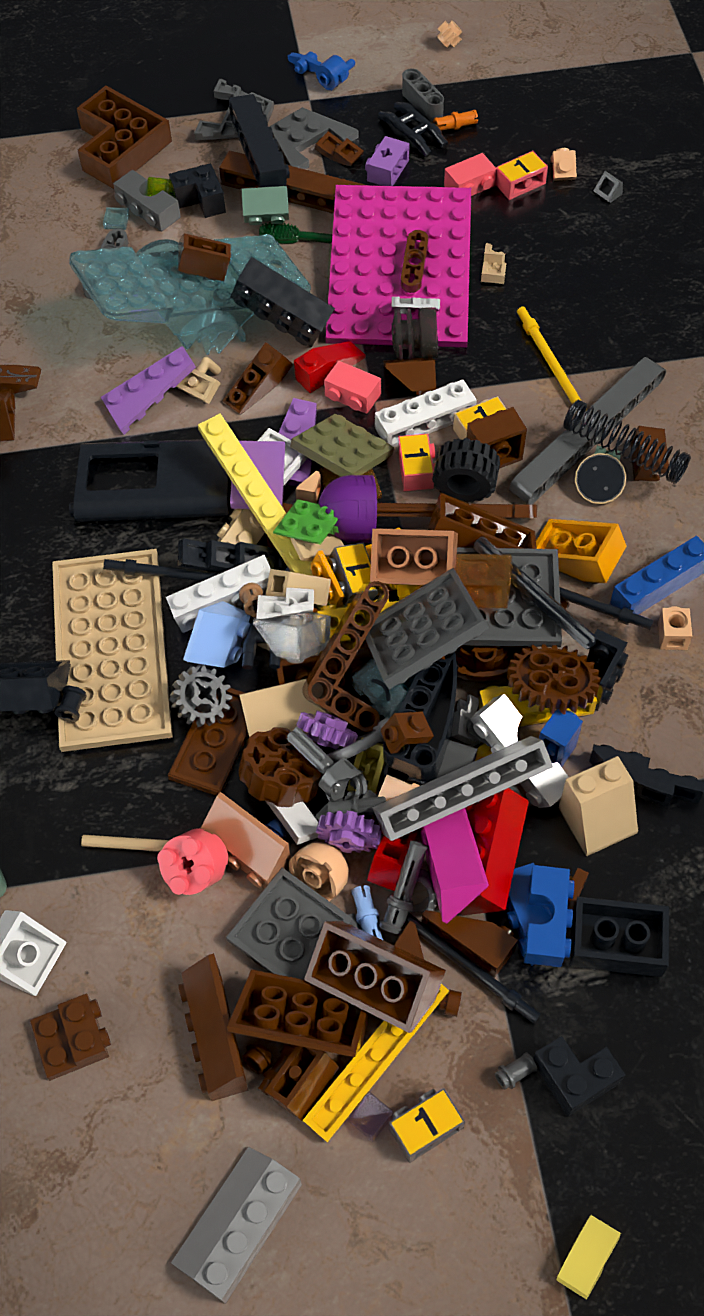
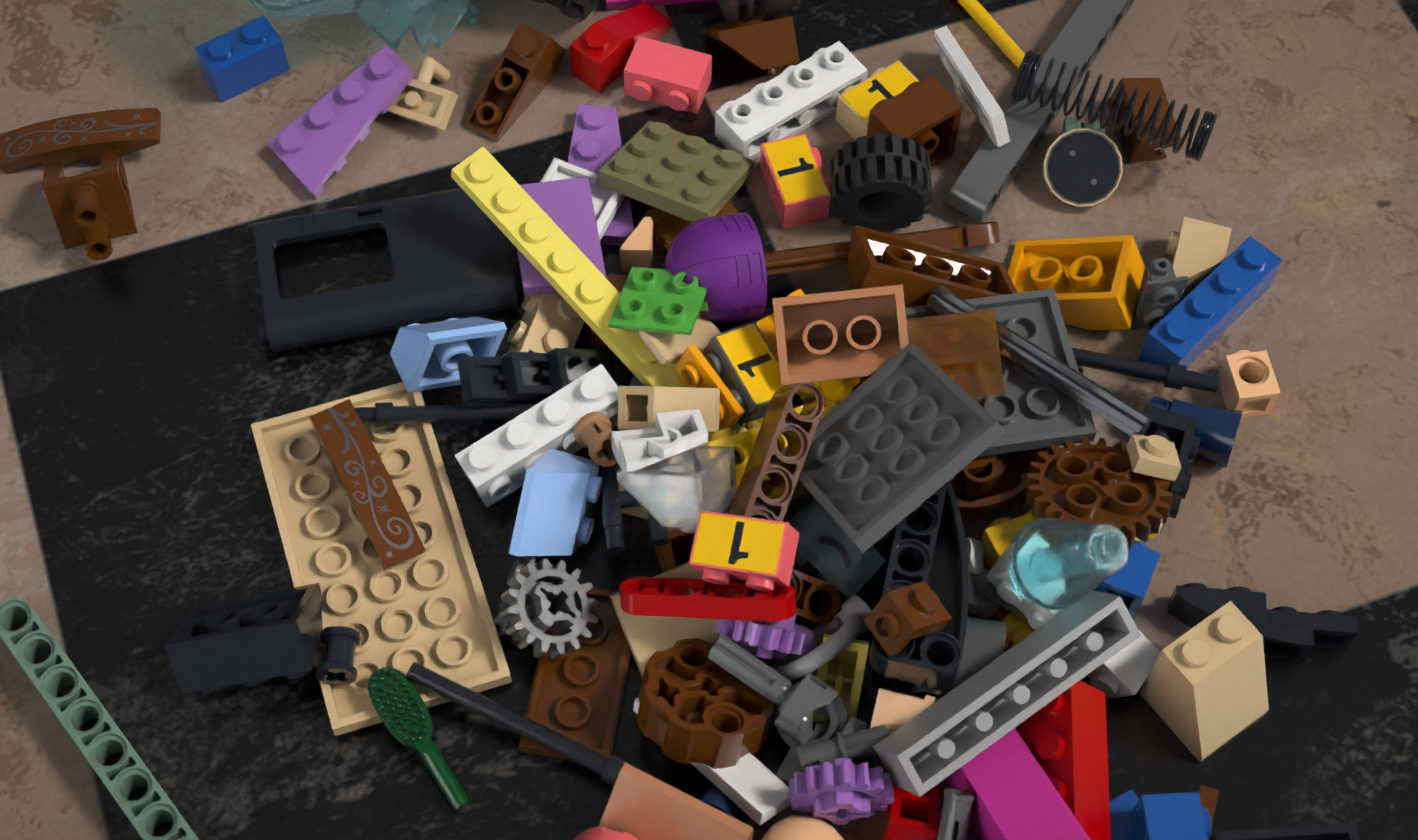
camera: 15 degrees left, 0 degrees up
(97, 344) = (242, 58): none -> blue brick
(105, 750) = (410, 723): none -> dark green piece
(110, 606) = (367, 484): none -> reddish brown slope
(165, 531) = (429, 352): none -> light blue slope
(165, 759) = (591, 759): none -> black bar
(294, 704) = (705, 600): none -> red beam
(318, 676) = (744, 550): none -> brick
(513, 714) = (1064, 560): none -> clear light blue cone
(540, 419) = (971, 86): none -> white tile
(593, 661) = (1153, 456): none -> tan plate
(627, 562) = (1159, 294): none -> dark grey hinge
(643, 653) = (1213, 425): none -> dark blue plant
(658, 542) = (1197, 250): none -> tan slope

